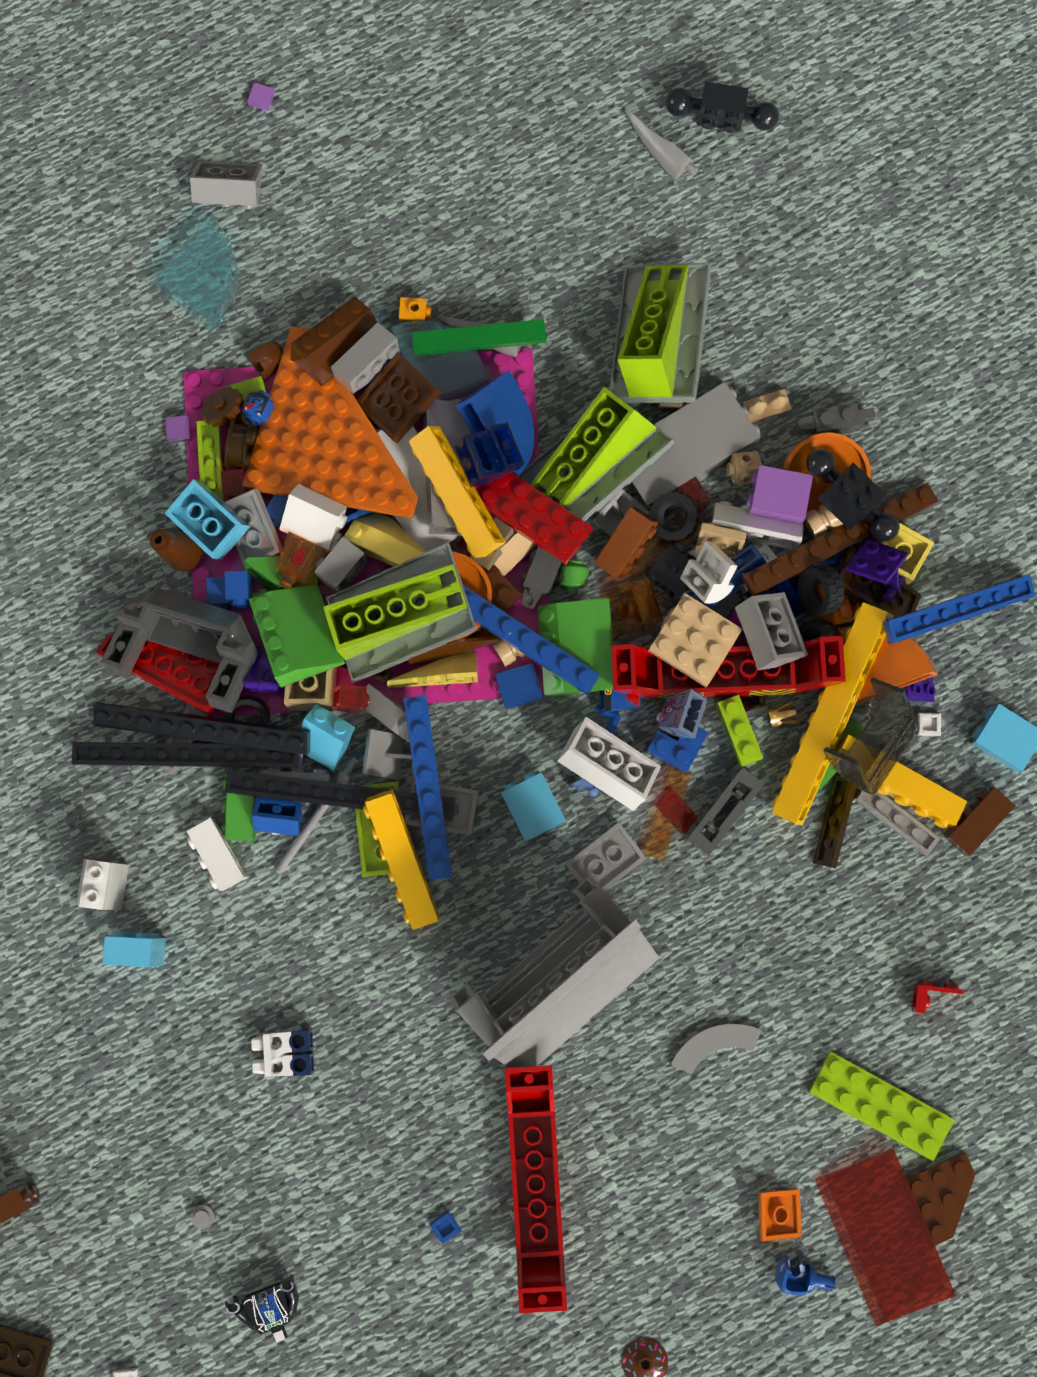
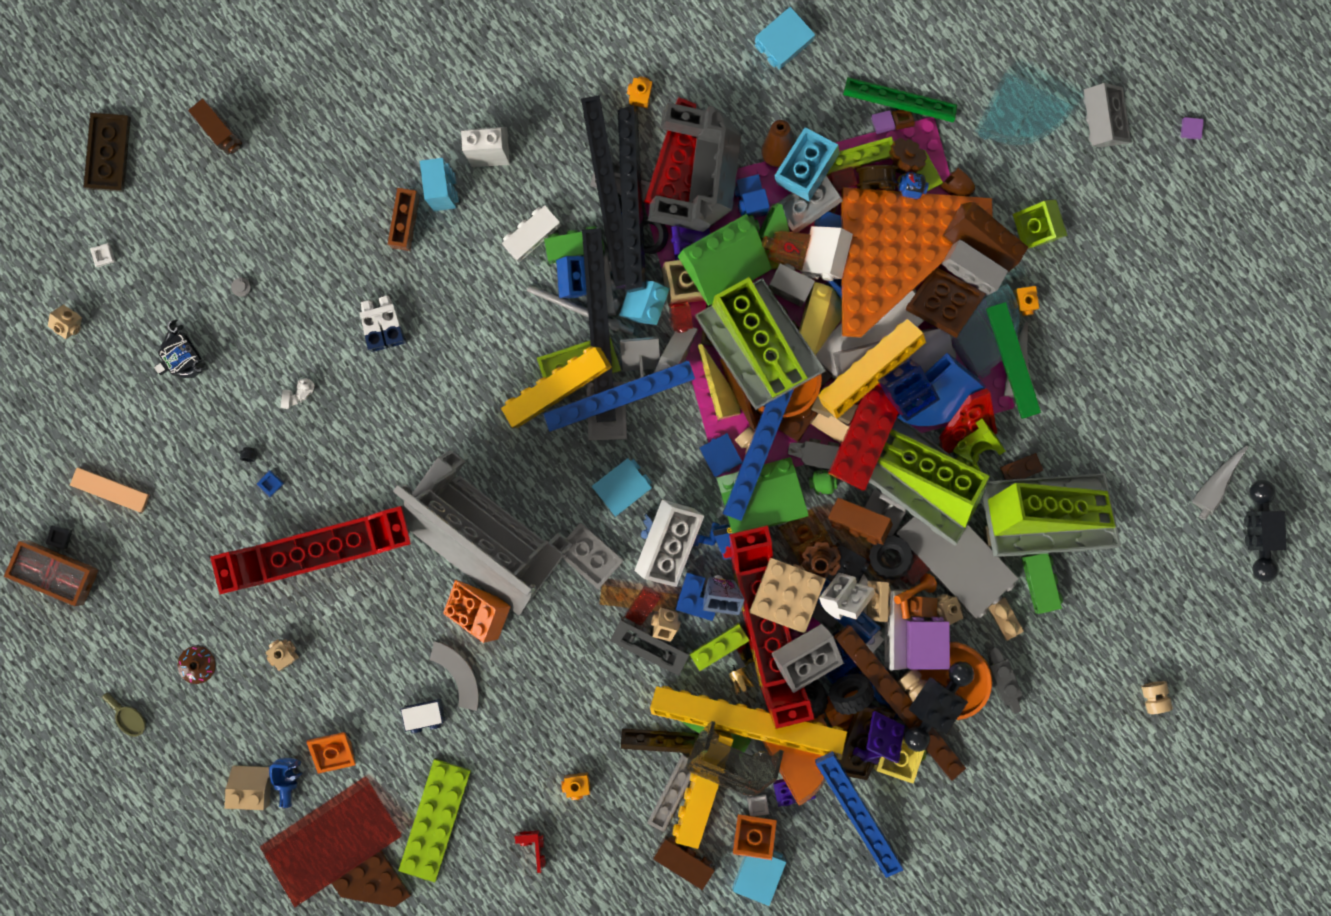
camera: 80 degrees right, 5 degrees up
(56, 519) = (784, 38): none -> medium azure brick
(79, 695) = (640, 92): none -> light orange brick
(156, 404) = (900, 99): none -> green tile
(165, 1001) = (403, 219): none -> dark orange brick
(179, 405) = (903, 119): none -> reddish brown tile
(331, 279) = (1040, 224): none -> lime slope
(342, 1164) = (304, 389): none -> white arm
(405, 1247) = (248, 454): none -> black plate
(540, 398) = (974, 408): none -> red plate
(563, 396) = (976, 443): none -> lime tile
(601, 354) = (1022, 468): none -> reddish brown plate
(645, 1006) = (477, 611): none -> orange slope
(651, 1243) = (288, 653): none -> tan brick
(660, 593) = (821, 558): none -> reddish brown plant
(702, 787) = (665, 620): none -> tan brick
(711, 483) = (927, 583): none -> orange piece
(734, 357) = (1042, 583): none -> bright green brick
(736, 493) = (923, 606): none -> dark orange brick
(755, 1095) = (423, 715): none -> white brick
(804, 1325) = (248, 788): none -> tan slope
(869, 929) = (576, 785): none -> light orange brick
(892, 259) = (1157, 704): none -> tan wheel
(964, 733) = (754, 837): none -> orange slope

